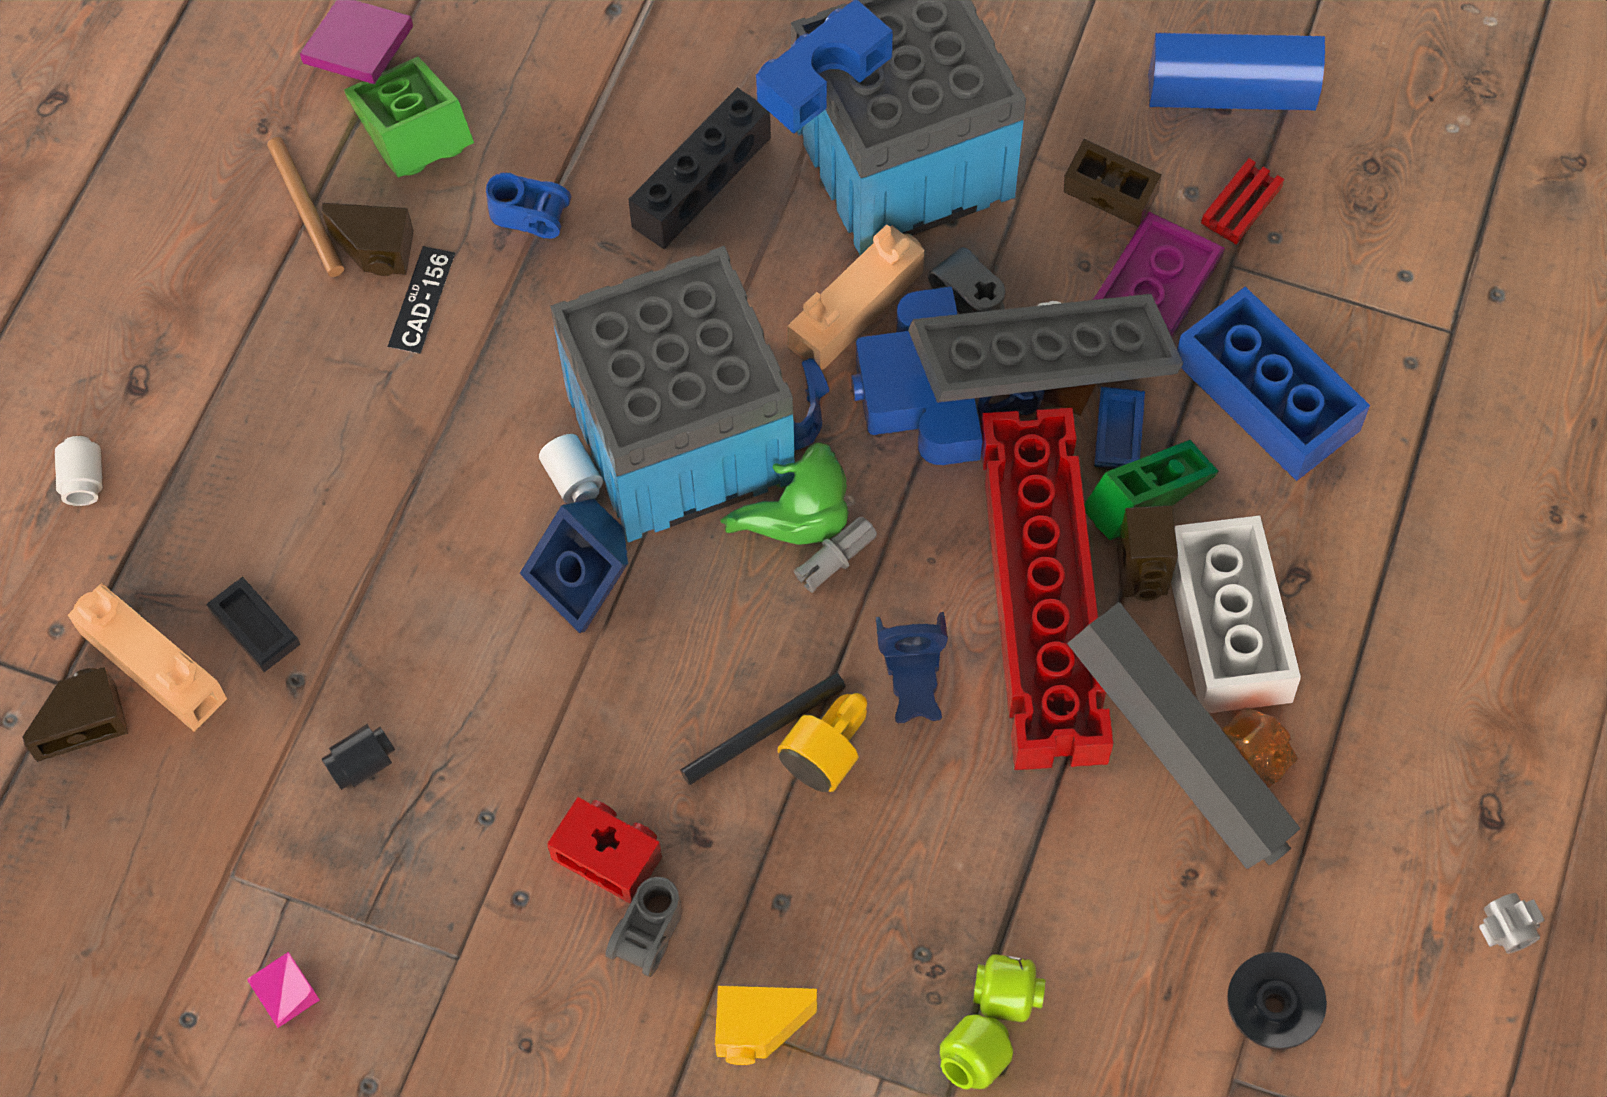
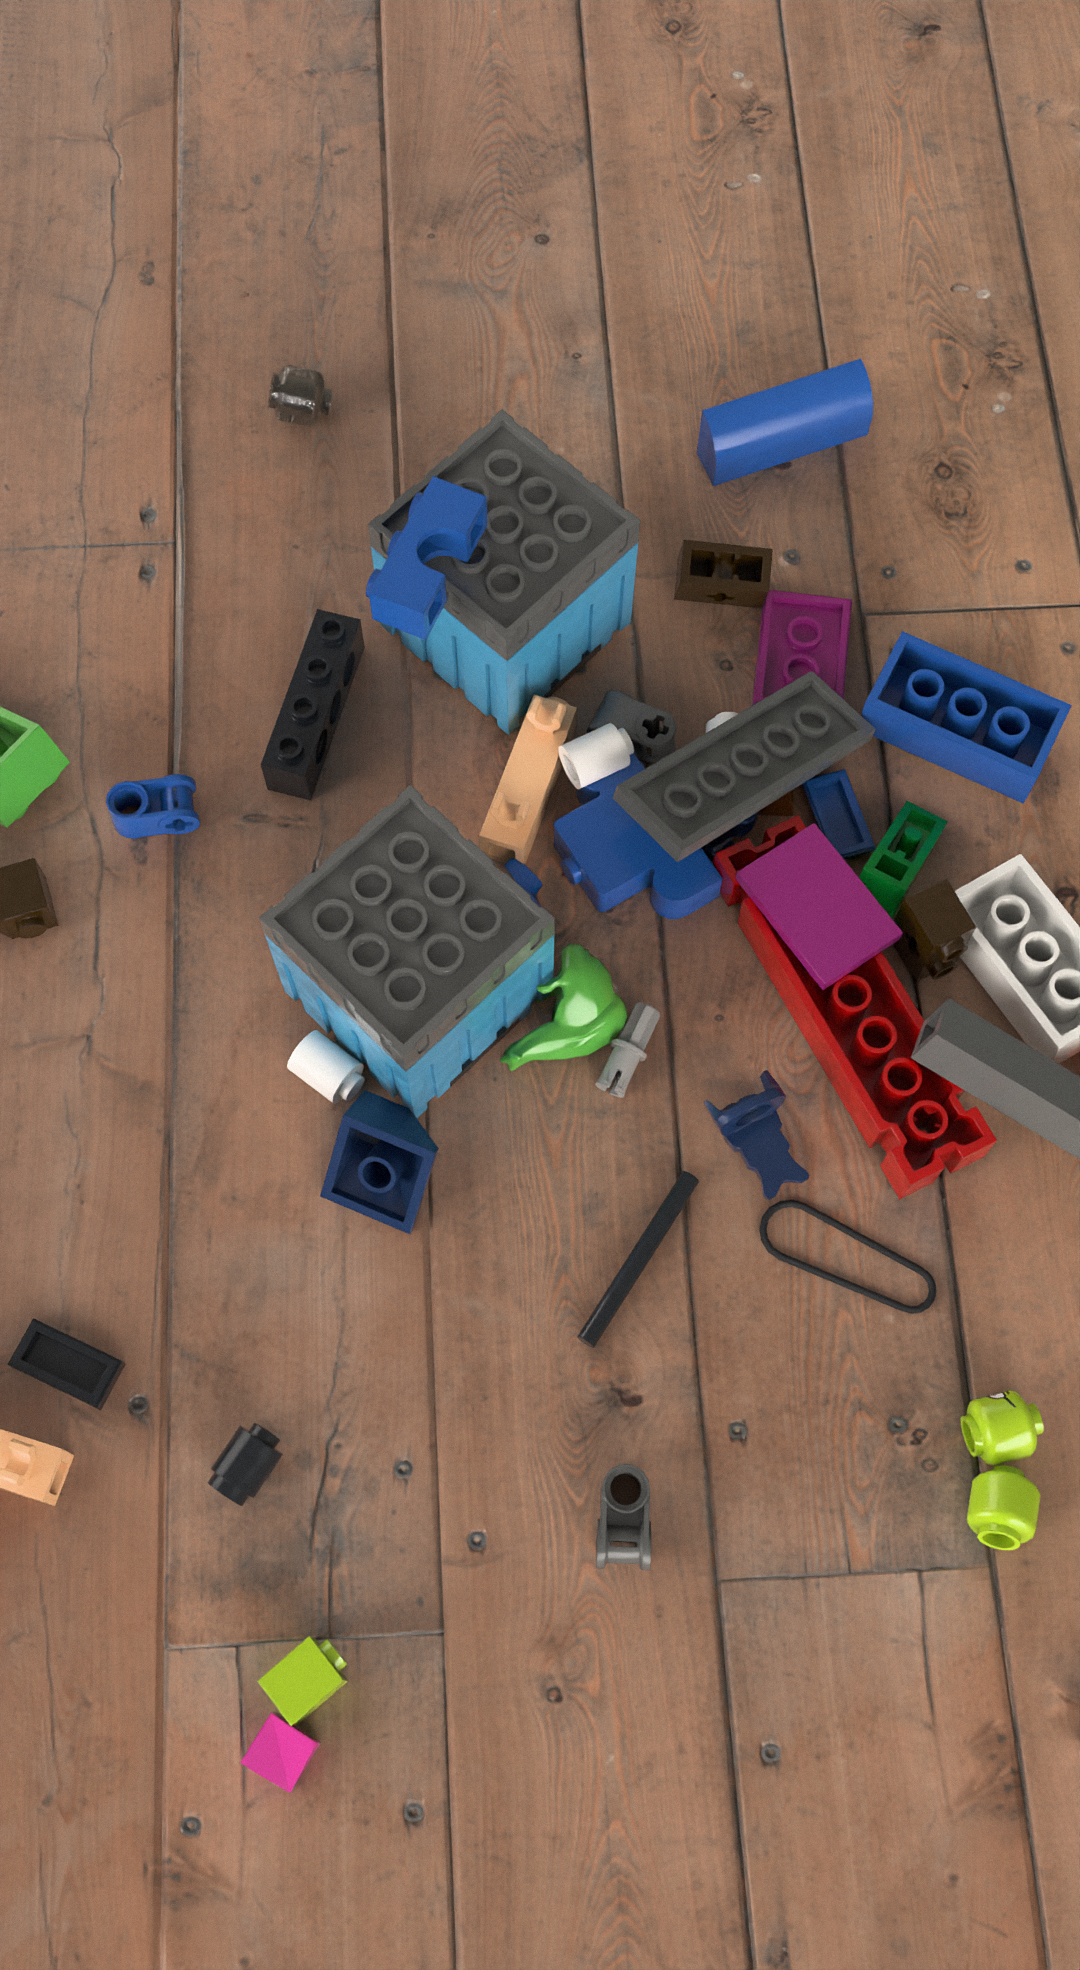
camera: 25 degrees left, 5 degrees up
(327, 941) = (304, 1679): none -> lime brick
(421, 300) = (86, 946): black sticker -> none
(617, 871) = (518, 1467): red brick -> none
(759, 1019) = (778, 1570): yellow slope -> none
(820, 749) = (708, 1258): yellow piece -> none
(916, 736) = (840, 1281): none -> black piece
(918, 293) = (596, 755): none -> white brick
(1050, 489) = (818, 906): none -> magenta tile
(1259, 177) = (851, 520): red tile -> none

